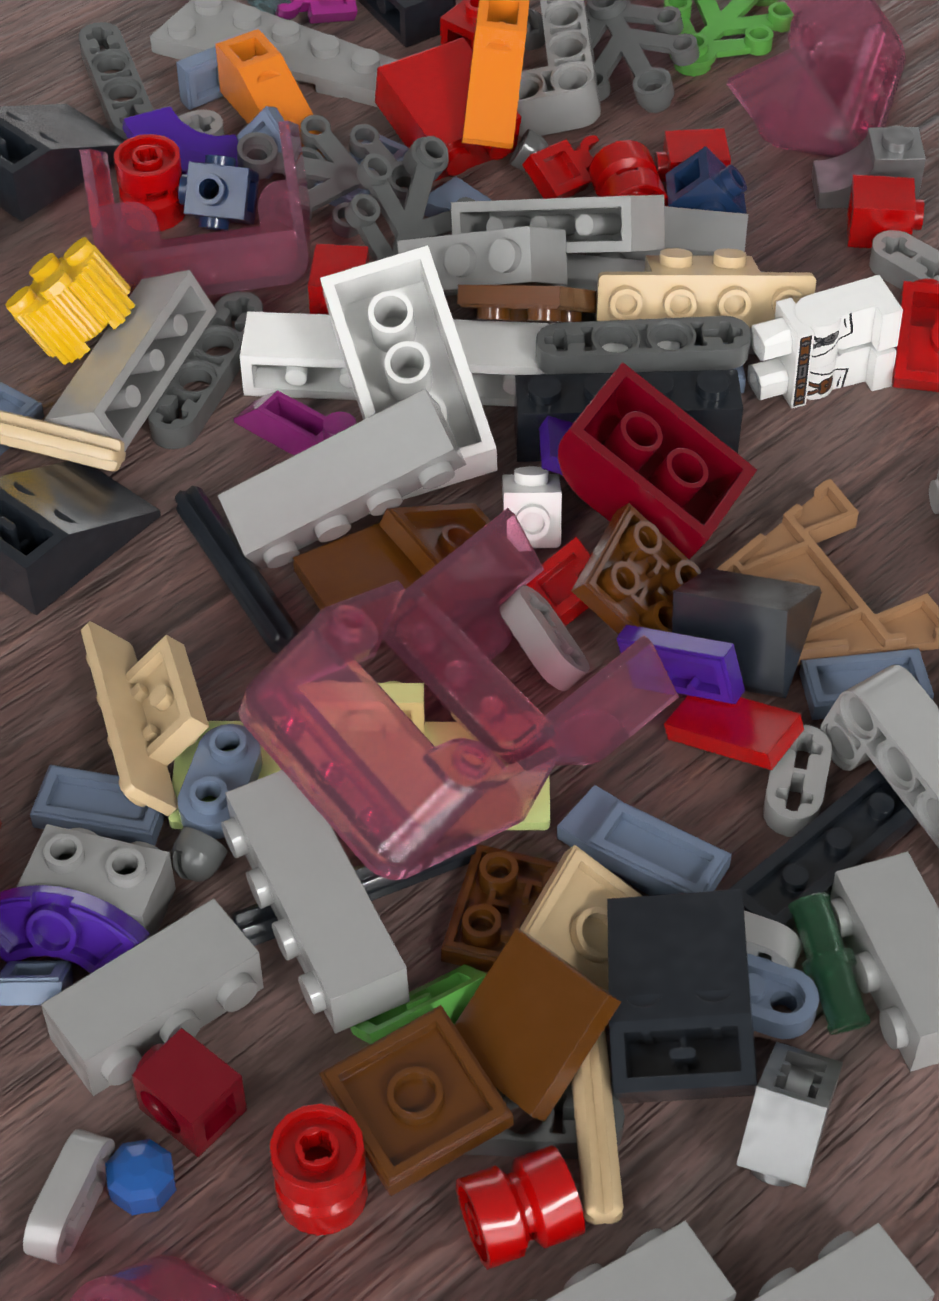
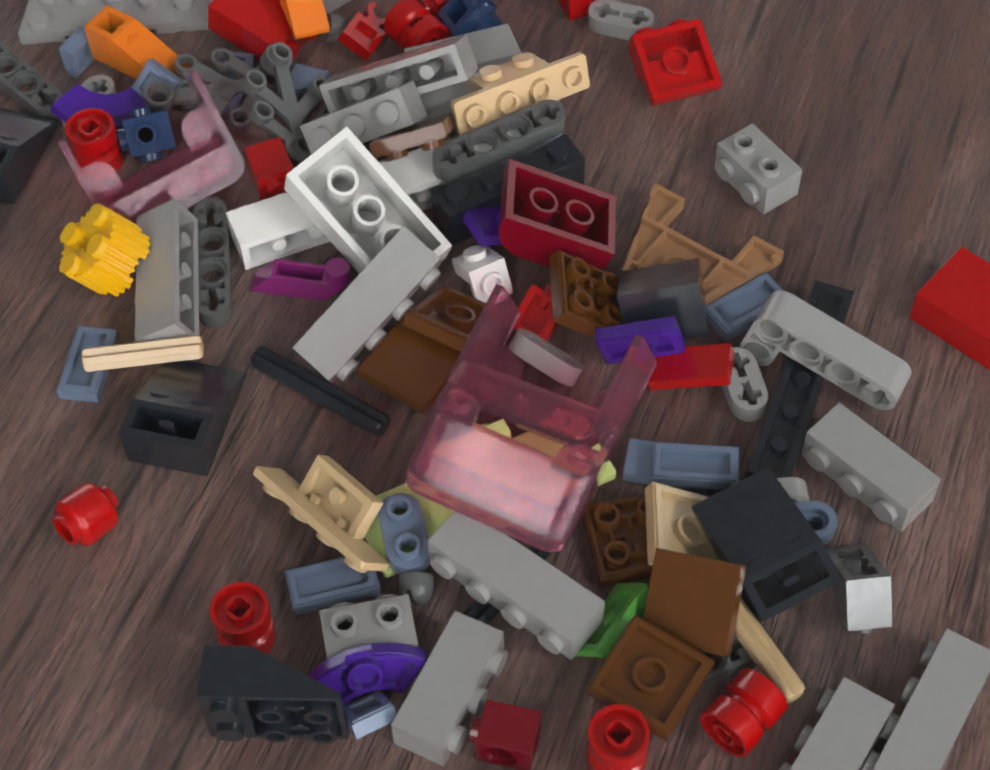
camera: 25 degrees left, 5 degrees up
(827, 342) = (607, 93): white hips -> none
(829, 963) = (829, 488): clear green pin -> none

